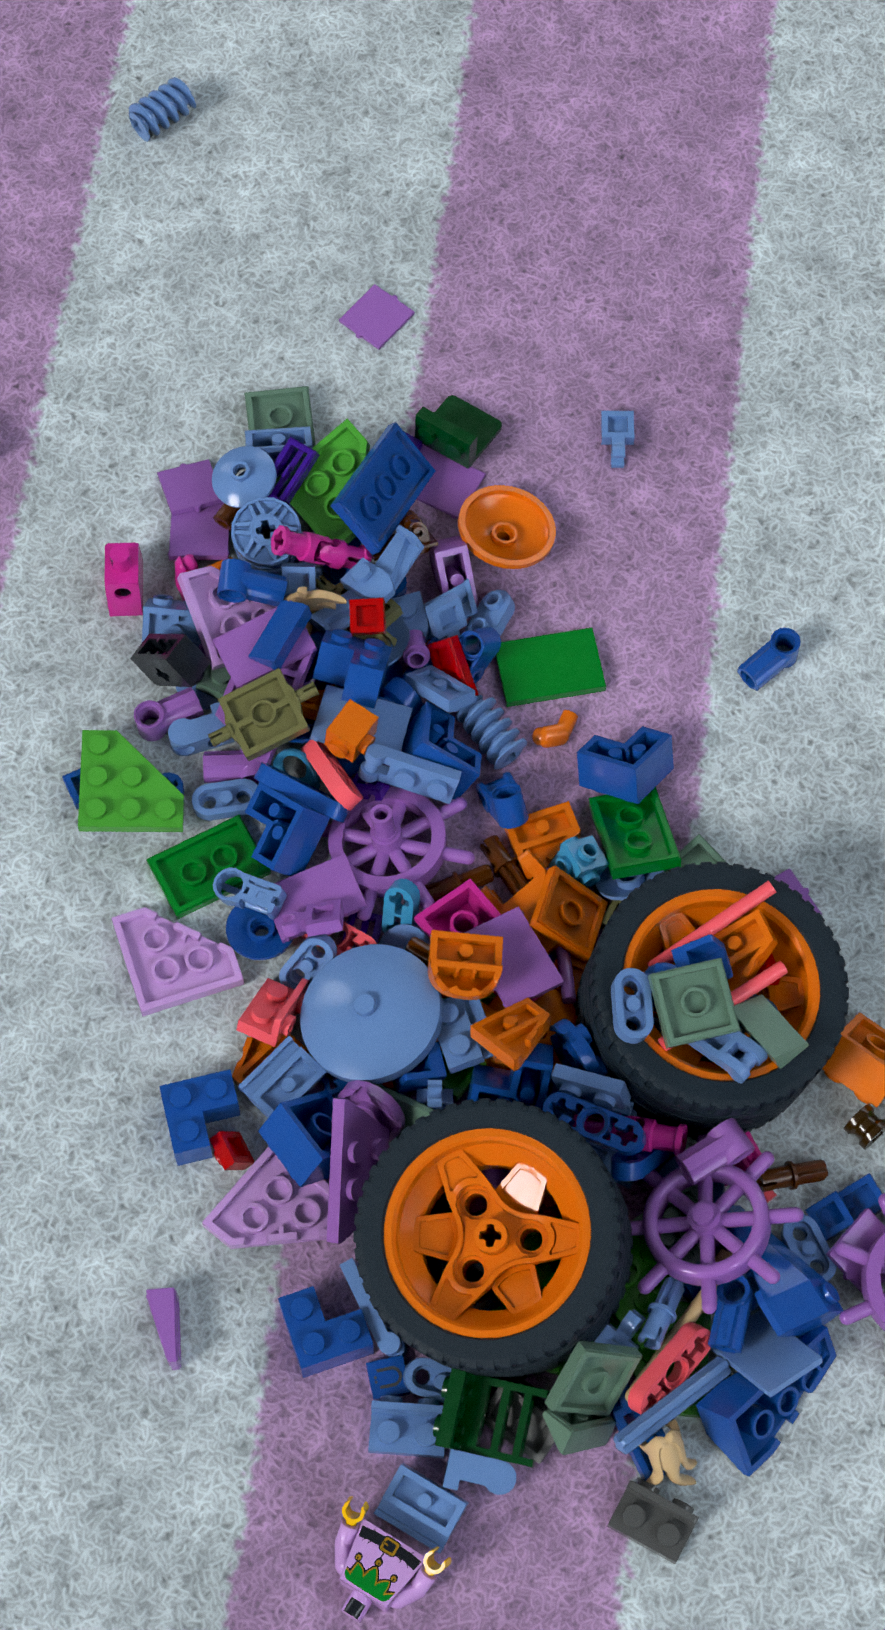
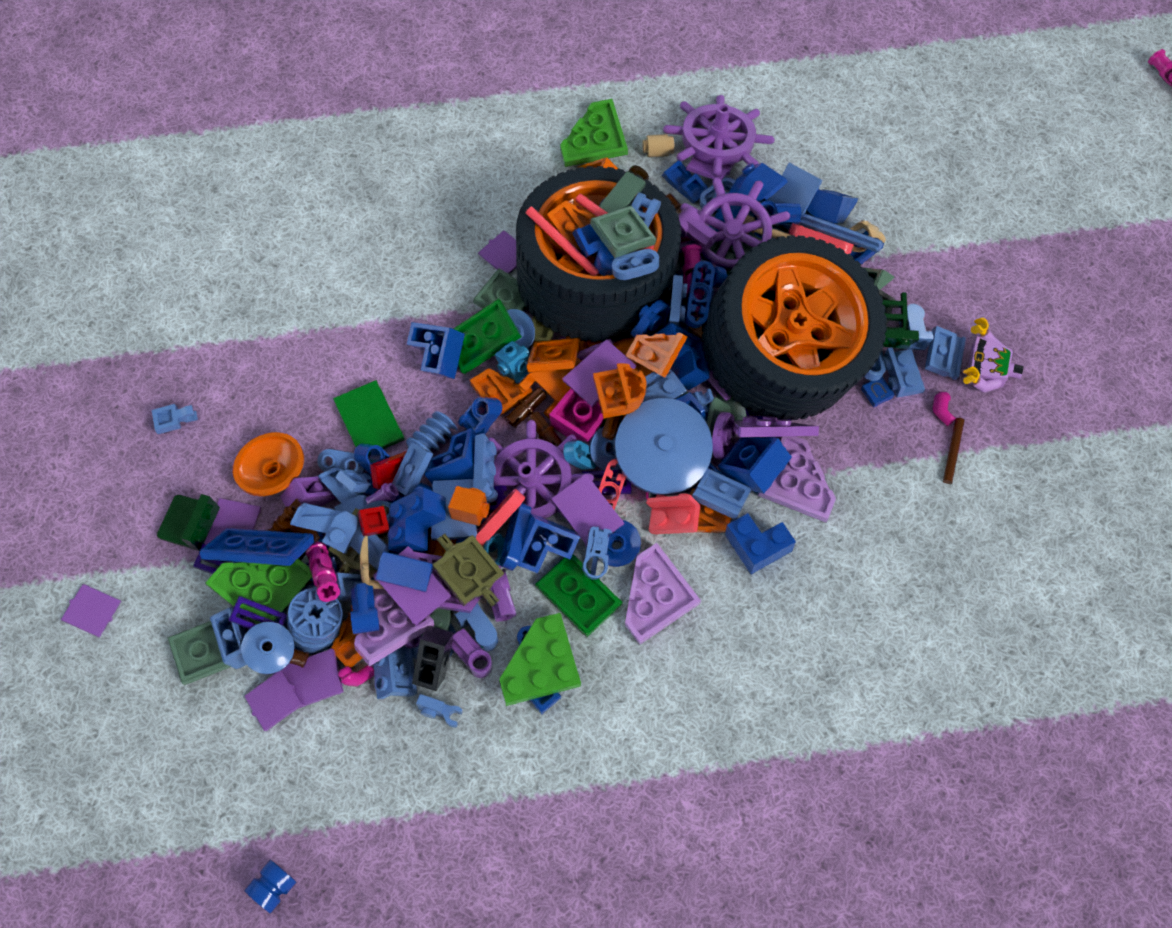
camera: 105 degrees left, 0 degrees up
(113, 657) = (432, 707): none -> medium blue plate
(125, 571) = (368, 718): dark pink torso -> none
(166, 1315) = (894, 522): medium lavender slope -> none
(225, 796) = (526, 596): medium blue plate -> none
(231, 1150) = (774, 515): red plate -> none
(255, 1458) = (953, 451): none -> reddish brown bar
(308, 960) = (633, 502): medium blue plate -> none
(317, 919) = (606, 496): medium lavender plate -> none
(319, 1342) = (873, 428): blue brick -> none
(330, 1464) = (940, 407): none -> dark pink arm
(386, 1340) = (843, 405): medium blue plate -> none
(556, 734) = (417, 400): orange arm -> none
(653, 1520) = (902, 238): dark grey bracket -> none
(769, 659) = (333, 288): blue piece -> none

